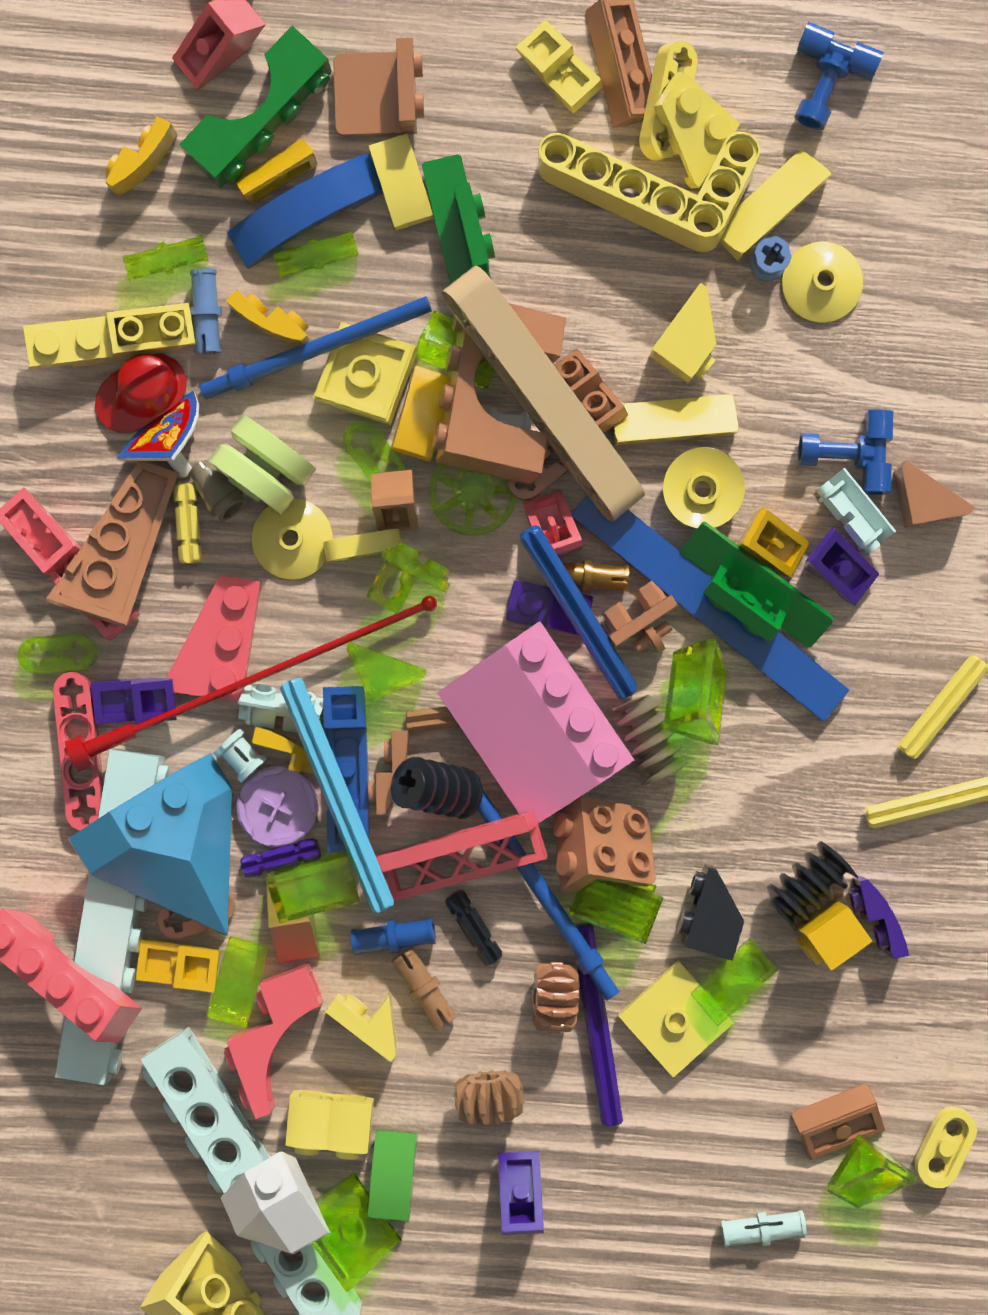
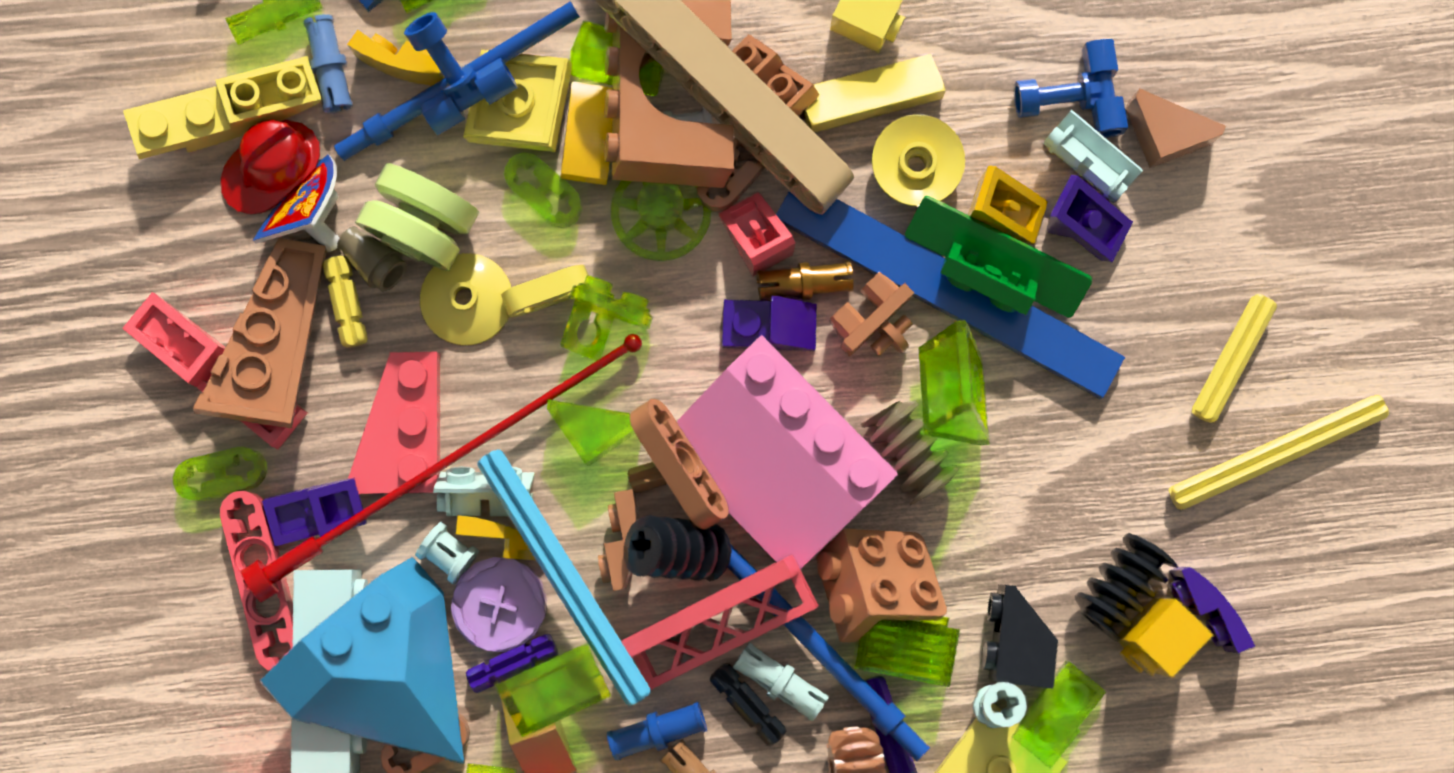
camera: 10 degrees left, 5 degrees down
(319, 354) = (461, 85): none -> blue bar
(347, 736) = (565, 508): blue slope -> none
(394, 500) = (574, 234): nougat slope -> none
(450, 717) = (679, 464): none -> nougat beam
(505, 913) = (780, 681): none -> light aqua pin
(578, 611) = (802, 319): blue axle -> none
(694, 975) = (1008, 716): none -> light aqua bush

